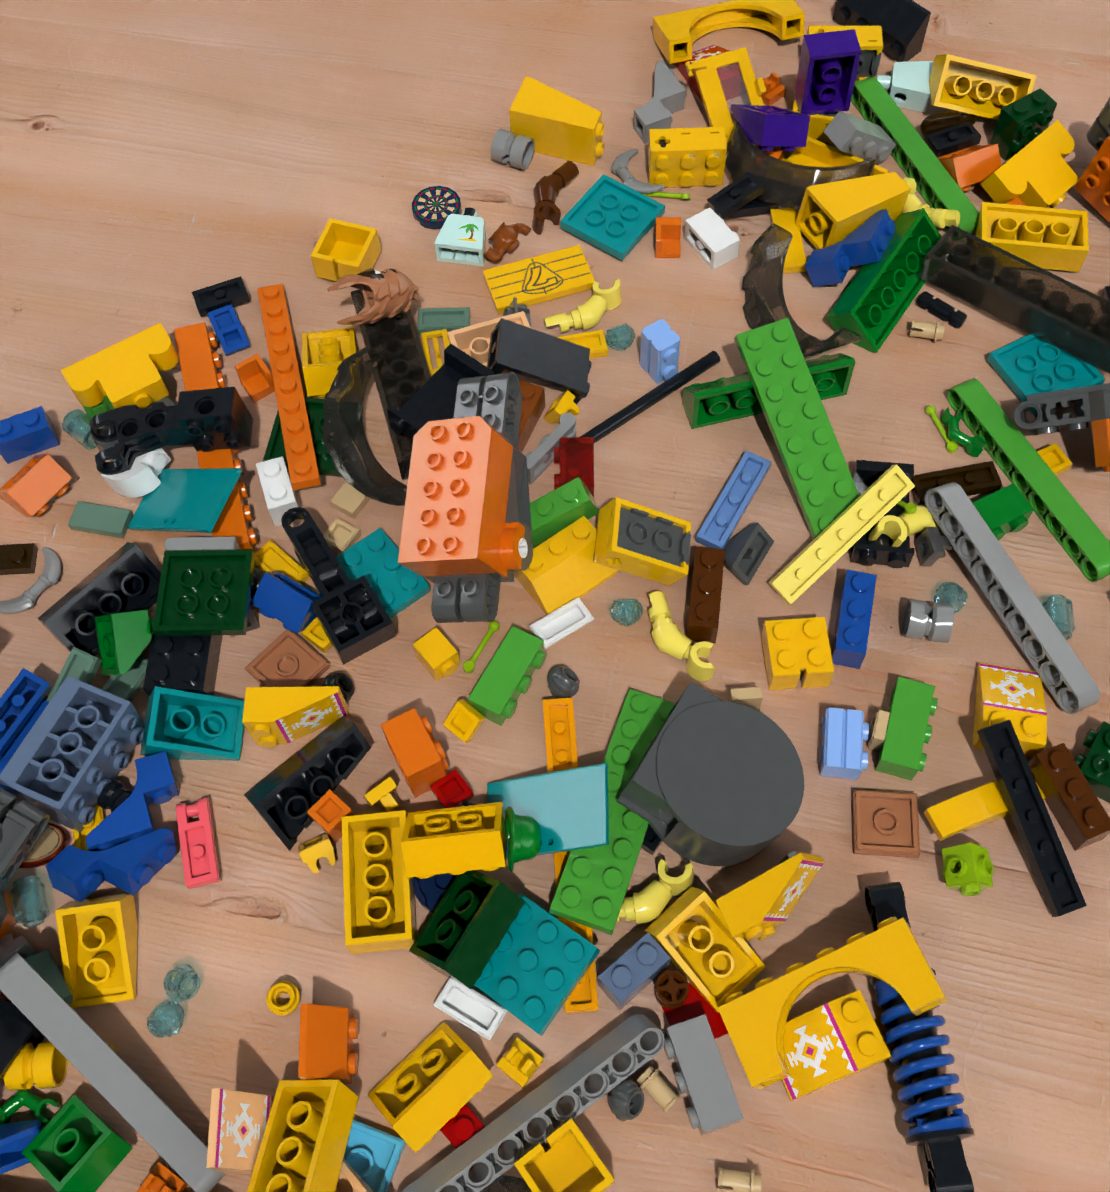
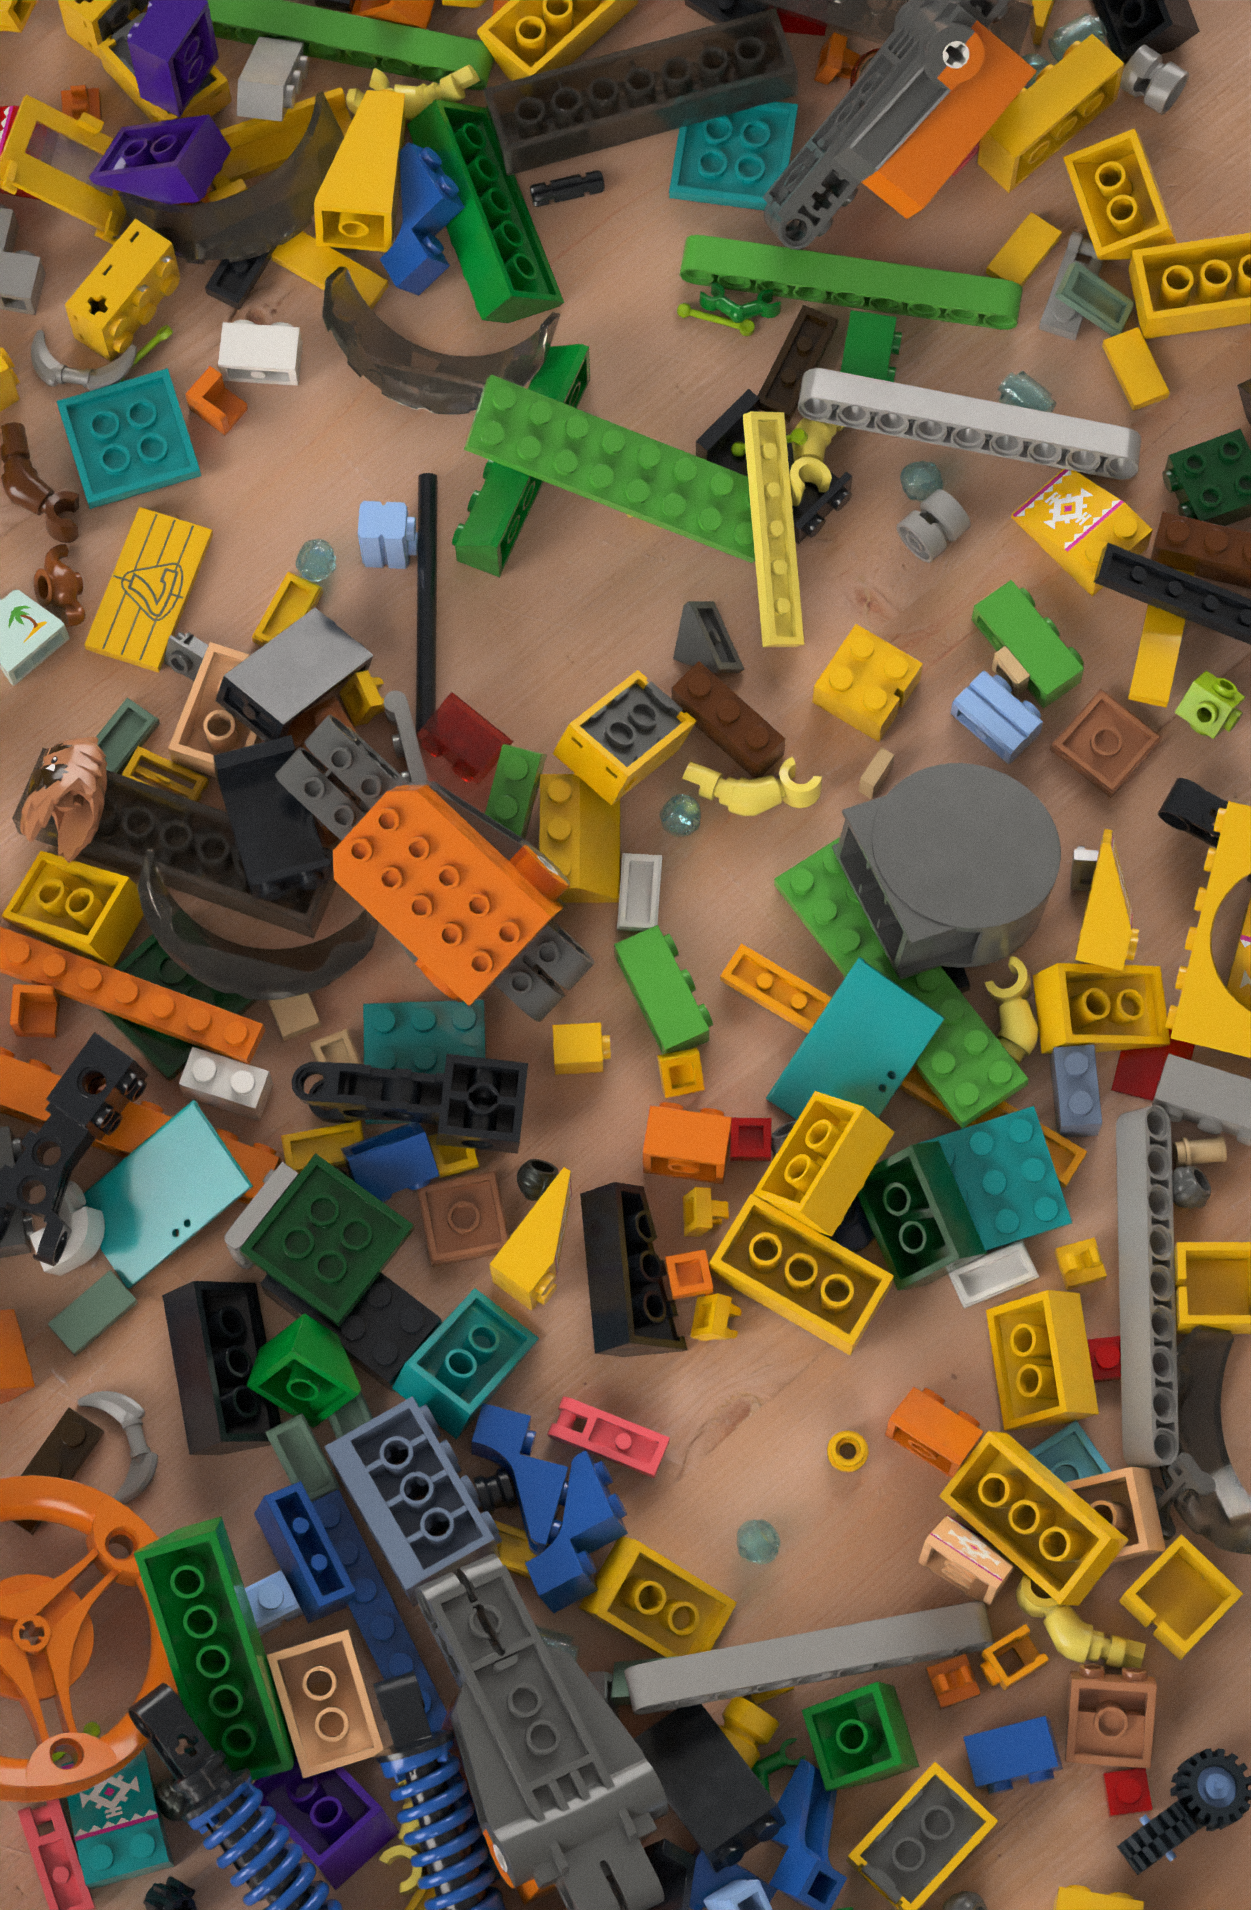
camera: 55 degrees left, 10 degrees up
(166, 1019) = (785, 1579): clear light blue piece -> none
(468, 666) = (613, 1025): lime hinge -> none
(522, 836) = (872, 1092): green hat -> none
(563, 682) = (714, 941): dark grey piece -> none
(589, 313) = (254, 569): light yellow piece -> none
(671, 982) = (1121, 1061): reddish brown wheel -> none
(733, 501) = (635, 604): medium blue plate -> none
(735, 195) = (232, 281): black plate -> none
(853, 619) = (872, 594): blue brick -> none
(929, 330) = (583, 227): tan pin -> none
(931, 546) = (851, 451): flat silver tile -> none
(1055, 459) = (849, 241): yellow plate -> none

